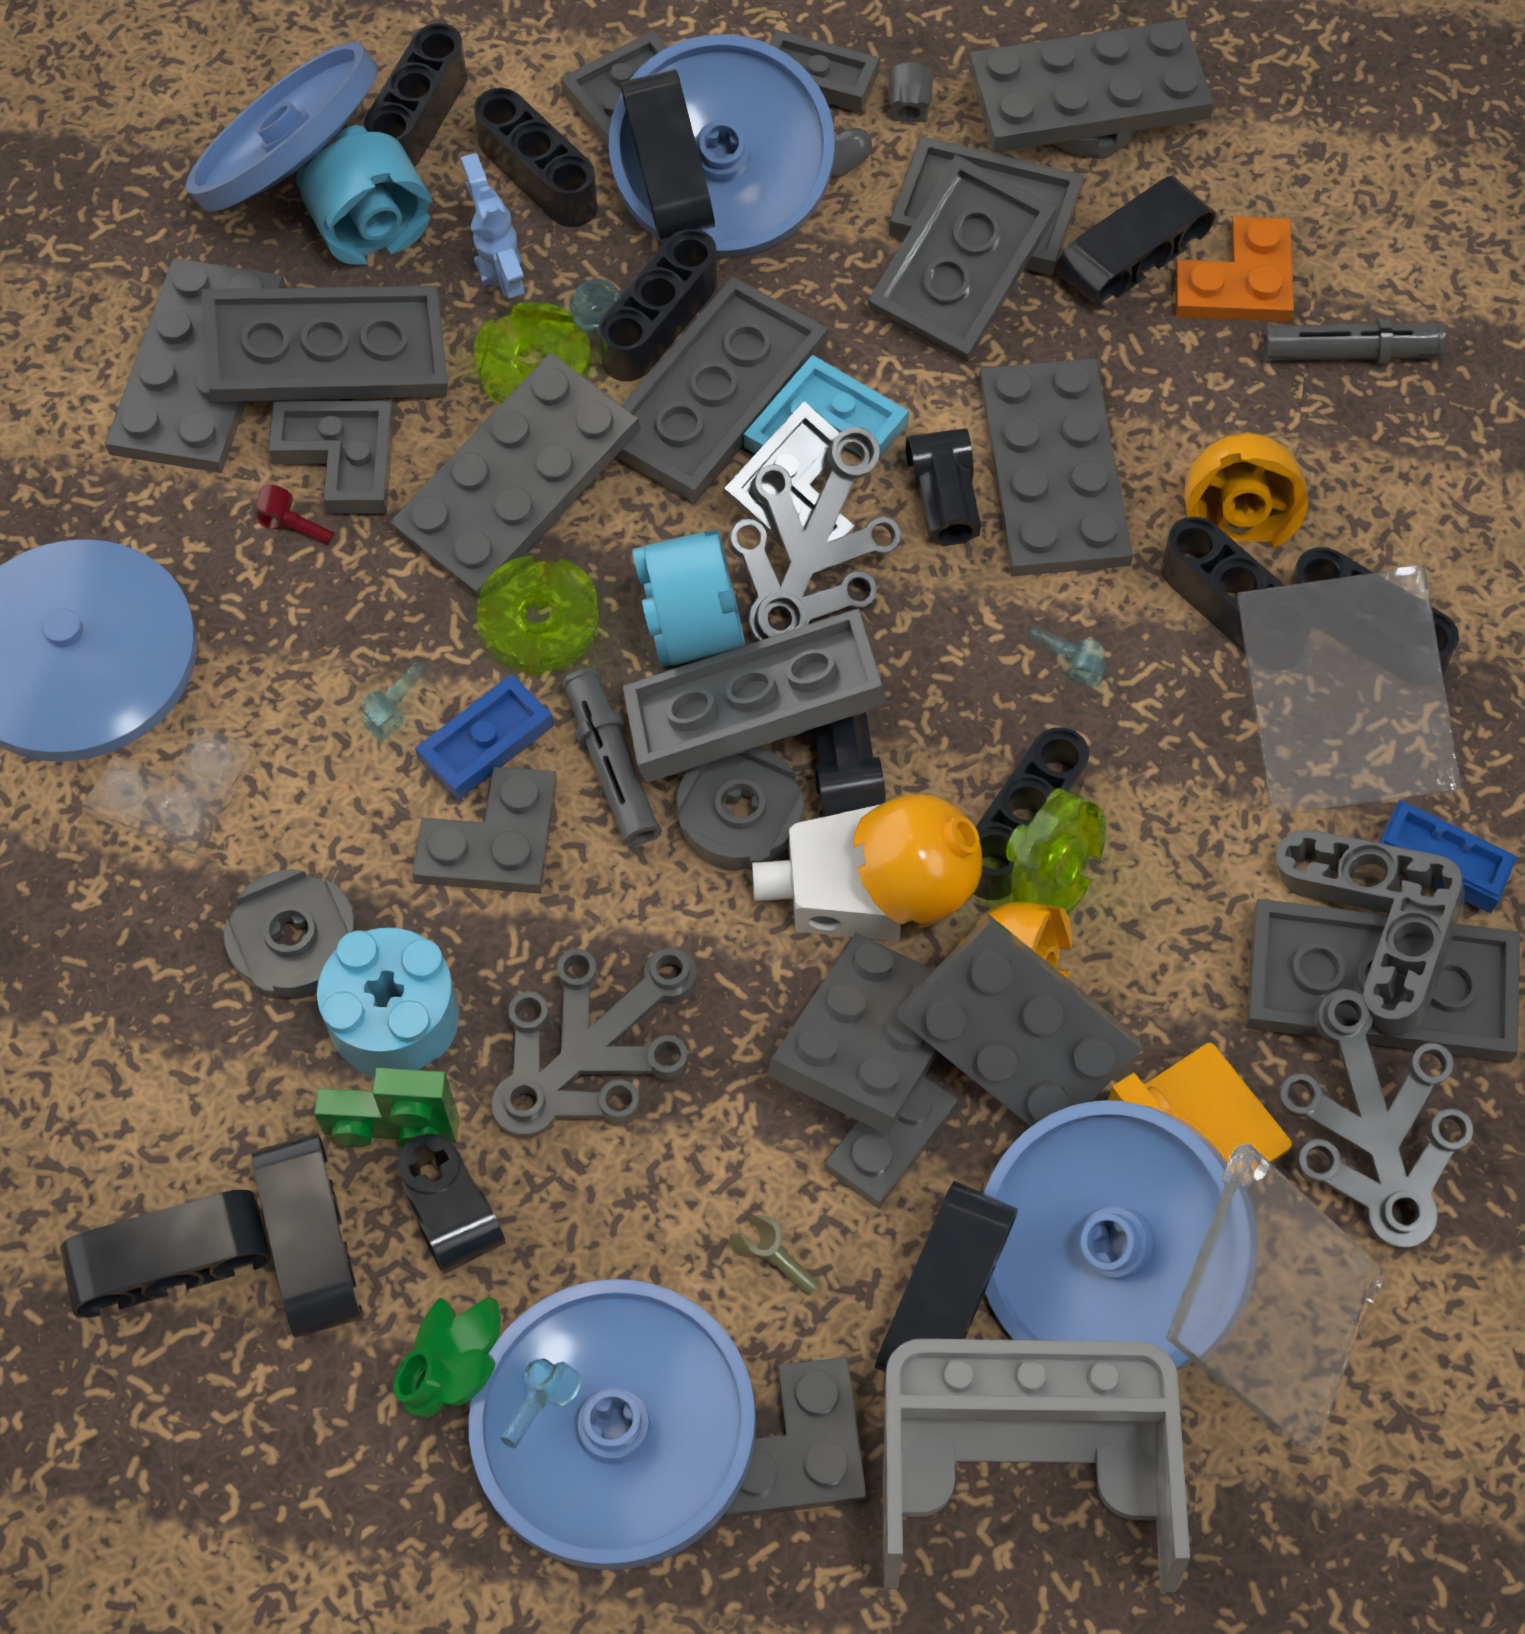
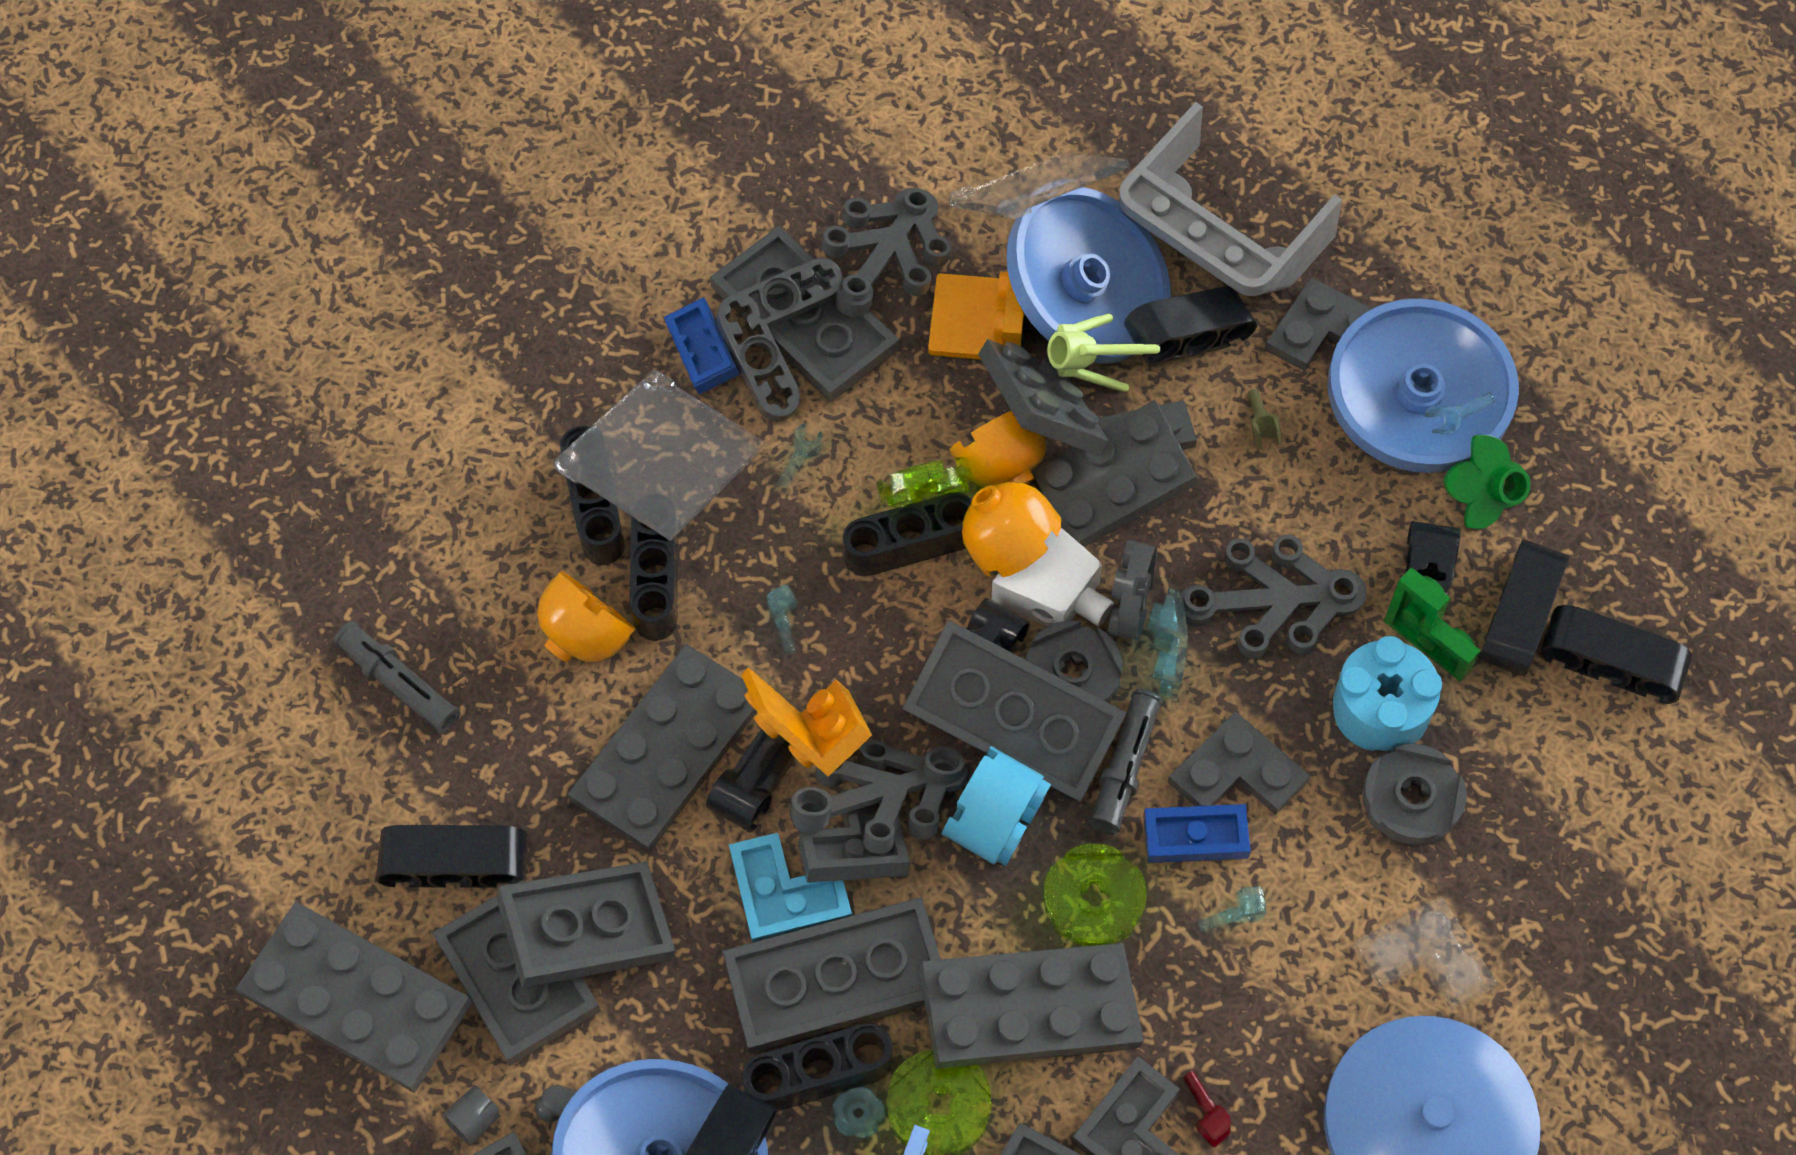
camera: 140 degrees left, 0 degrees up
(662, 905) = (1170, 639): none -> clear light blue slope
(736, 903) = (1132, 590): none -> dark grey plate
(941, 524) = (821, 734): none -> light orange bracket
(1027, 1098) = (1073, 350): none -> yellowish green plant
(1224, 826) = (803, 451): none -> clear light blue hand
(1249, 287) = (405, 772): orange plate -> none

